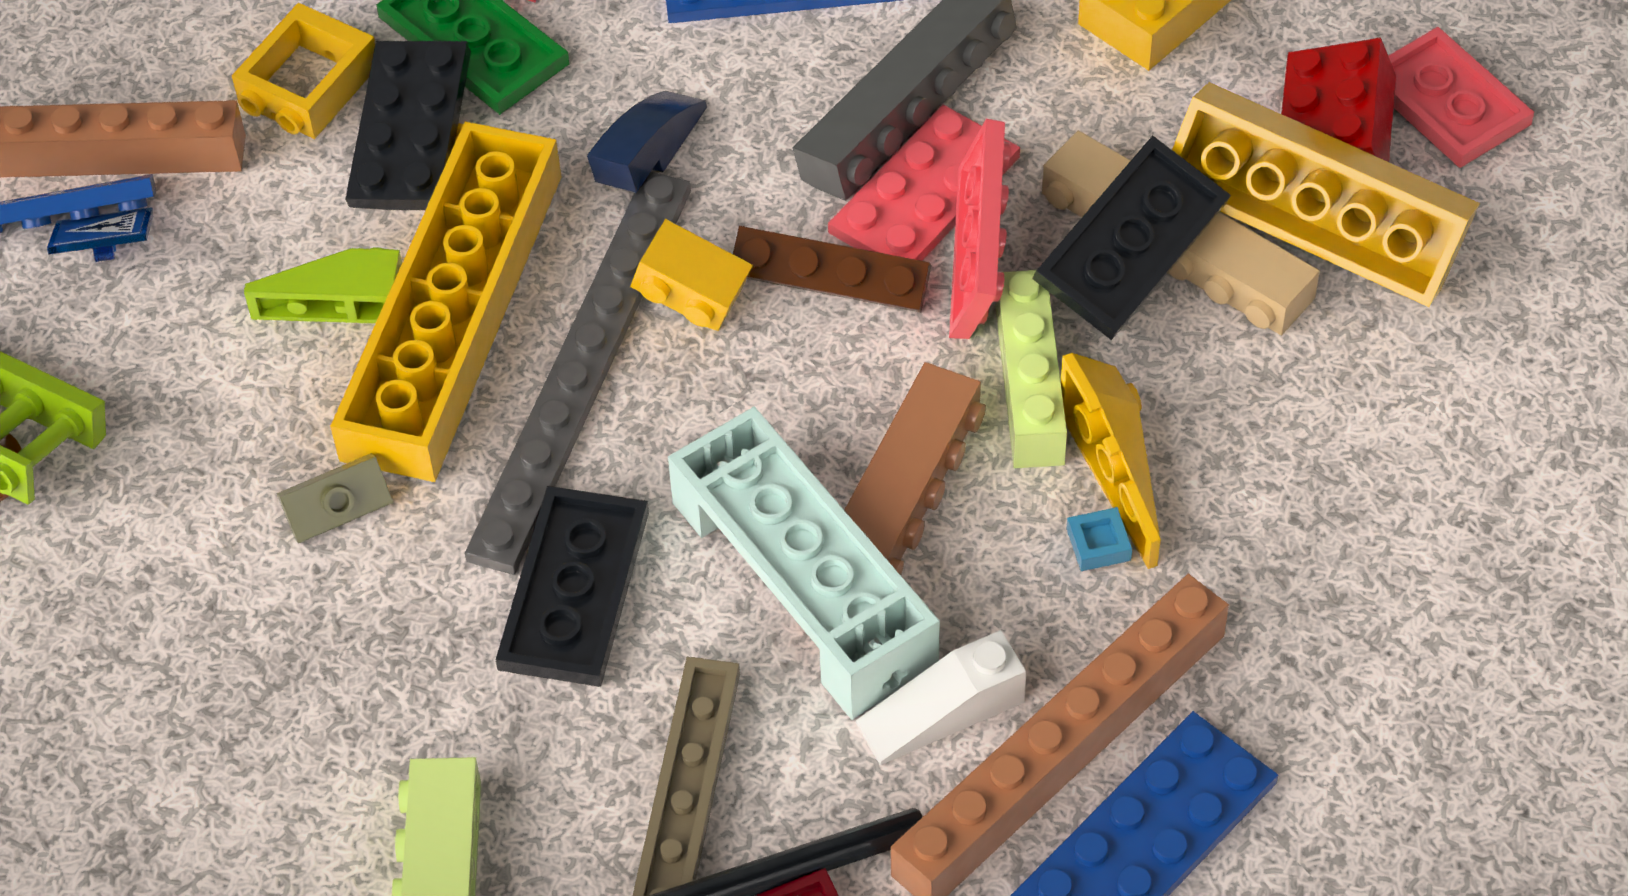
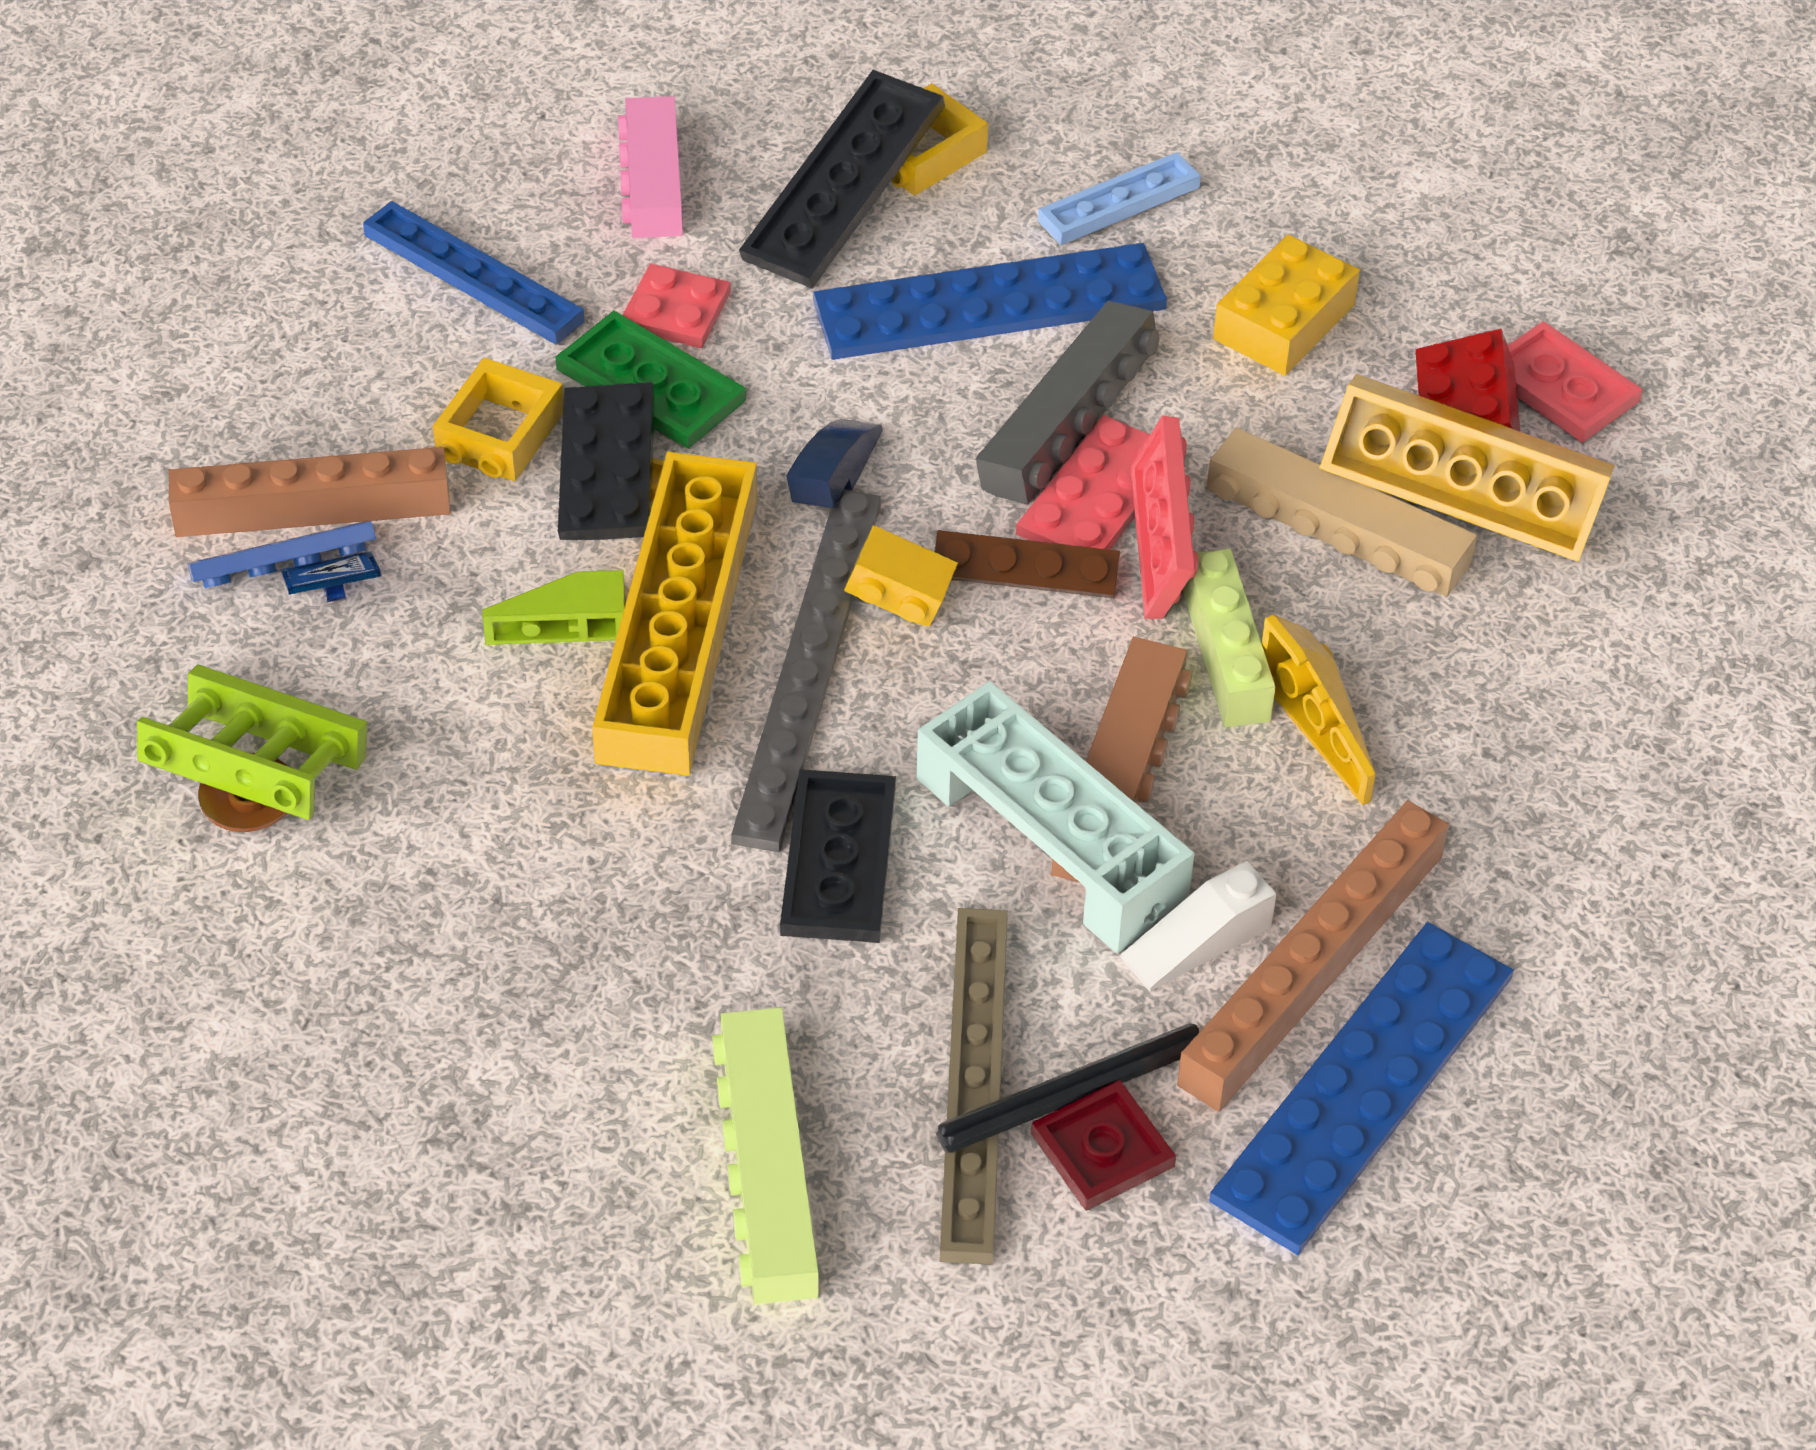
camera: 10 degrees left, 5 degrees down
(335, 498) = (600, 794): olive plate -> none
(1099, 539) = (1315, 781): dark azure plate -> none
(1131, 237) = (1305, 514): black plate -> none

